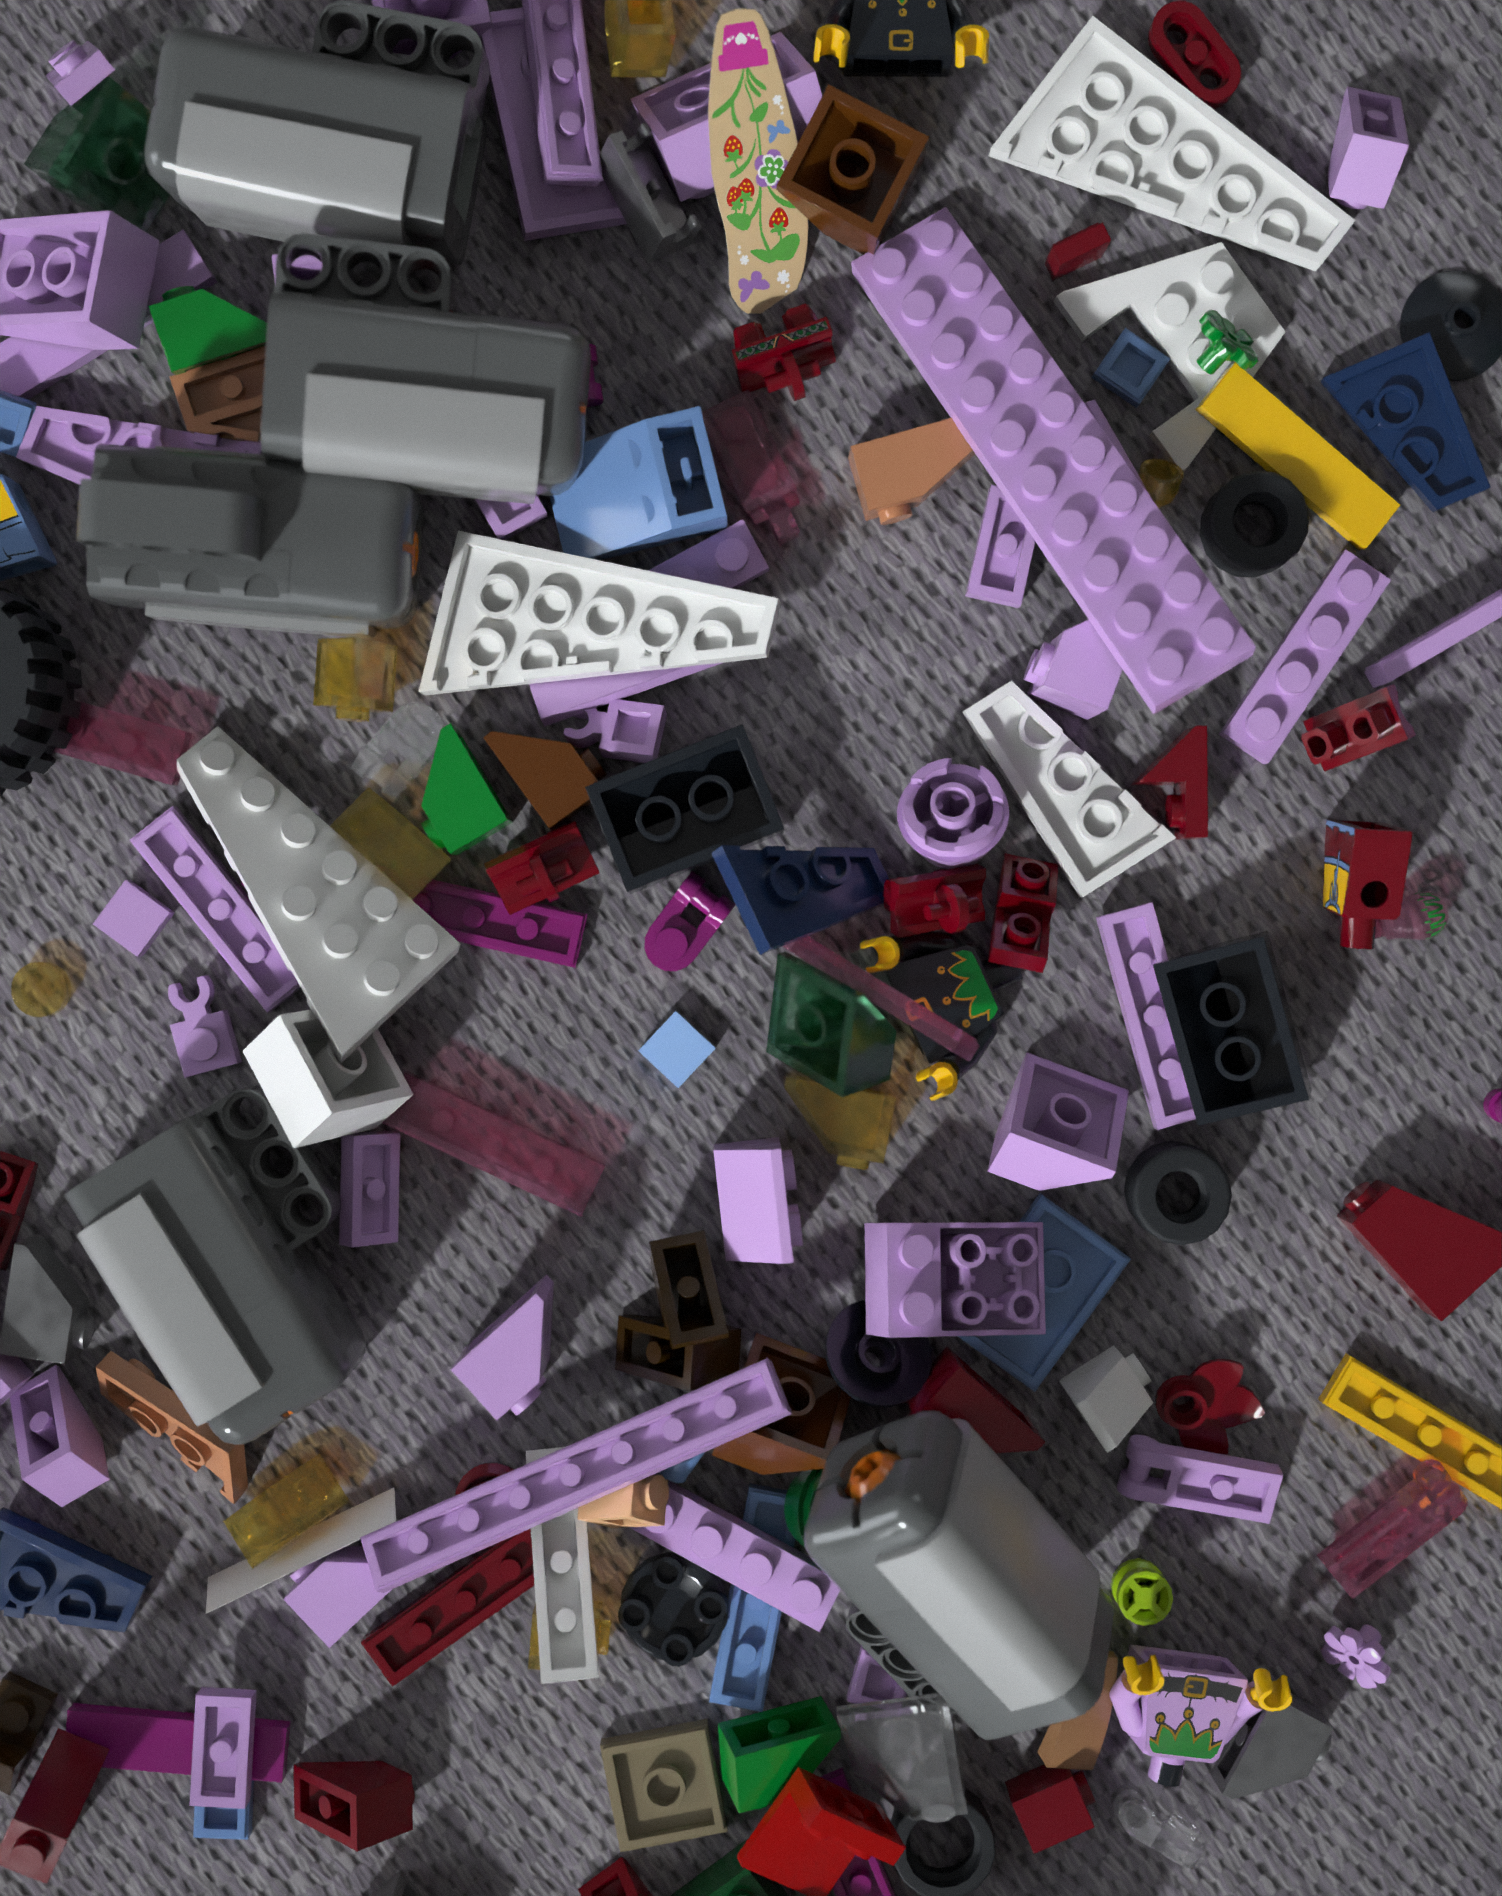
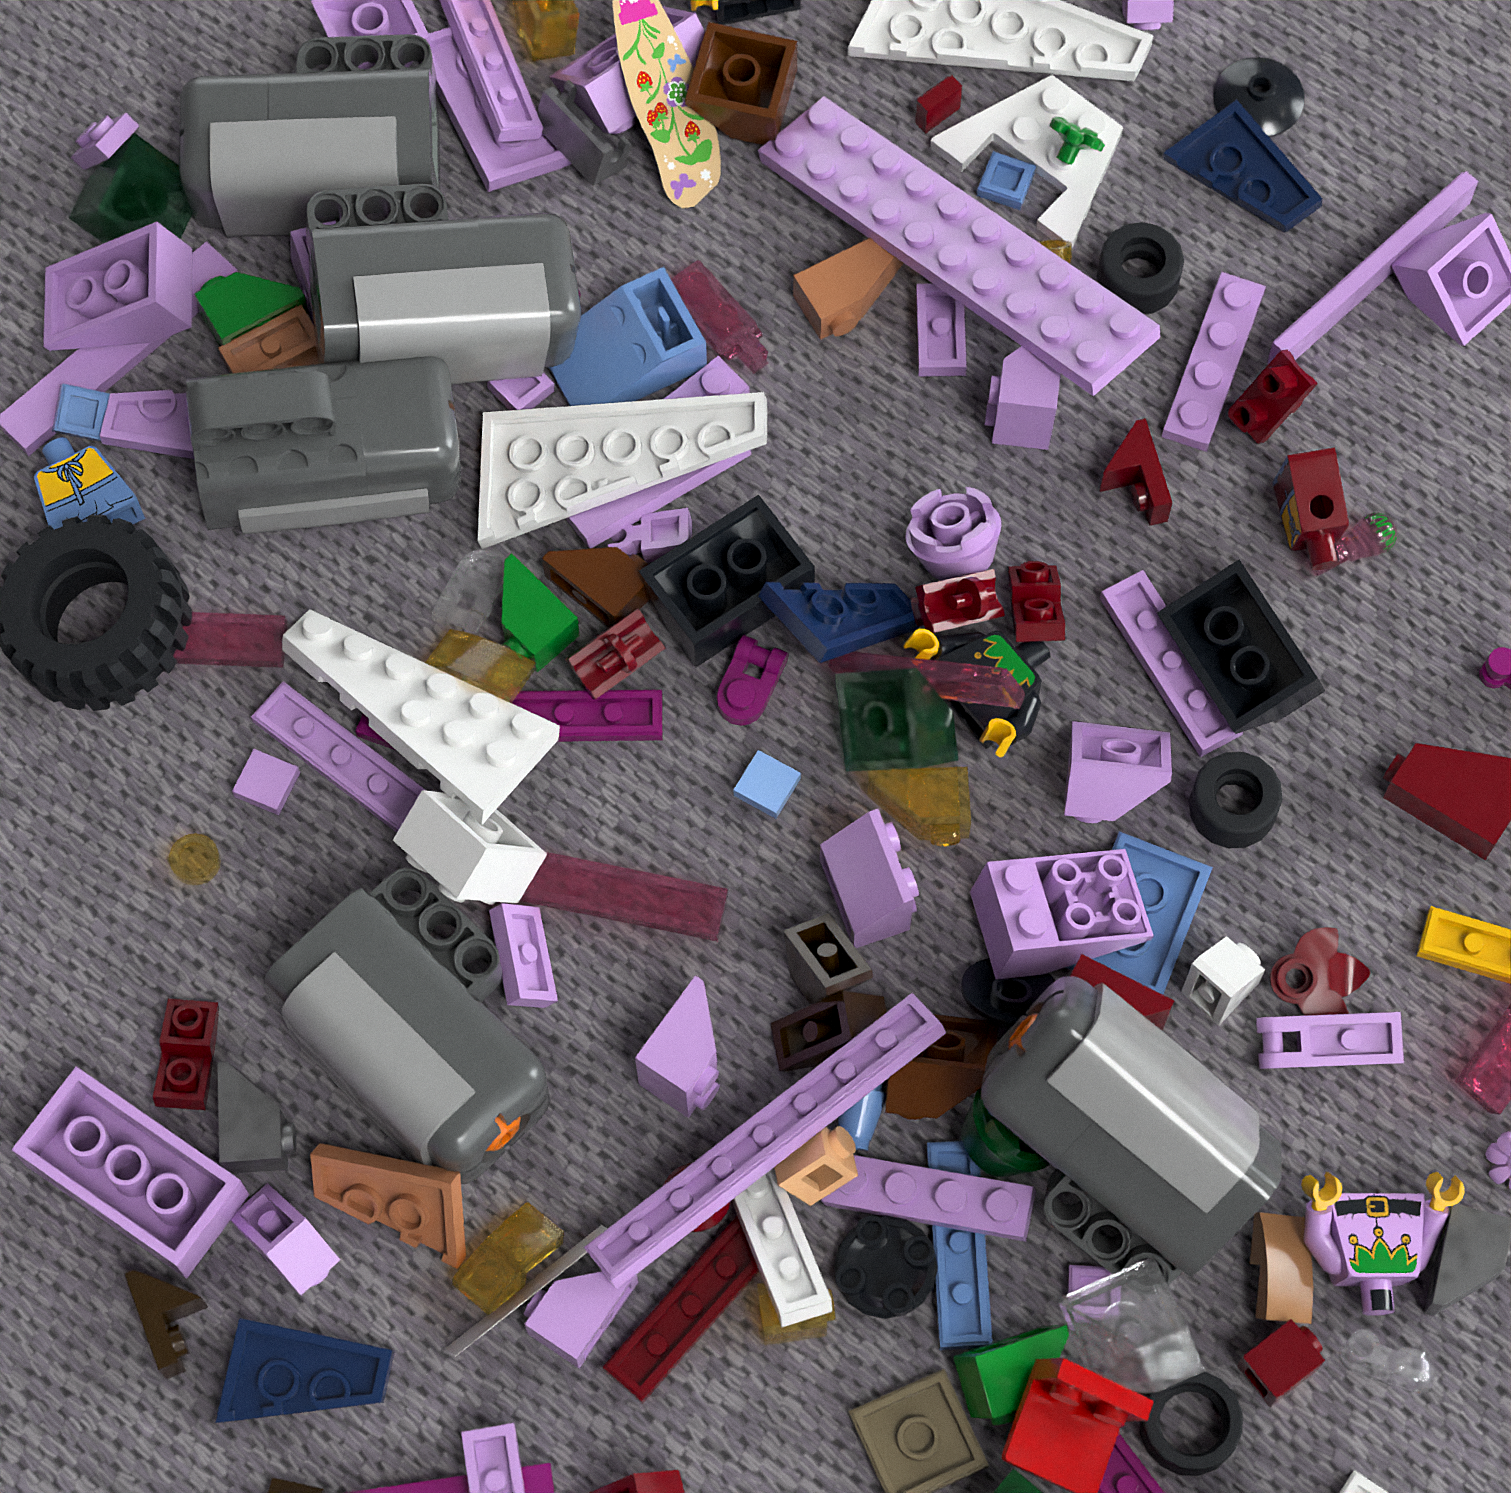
camera: 15 degrees left, 20 degrees down
(204, 1038) = (346, 864): lavender plate -> none
(355, 677) = (421, 539): clear yellow brick -> none
(786, 356) = (721, 227): dark red hips -> none
(1071, 801) = (1057, 515): white wing -> none
(1148, 1603) = (1314, 1142): lime wheel -> none
(1294, 450) = (1136, 200): yellow tile -> none

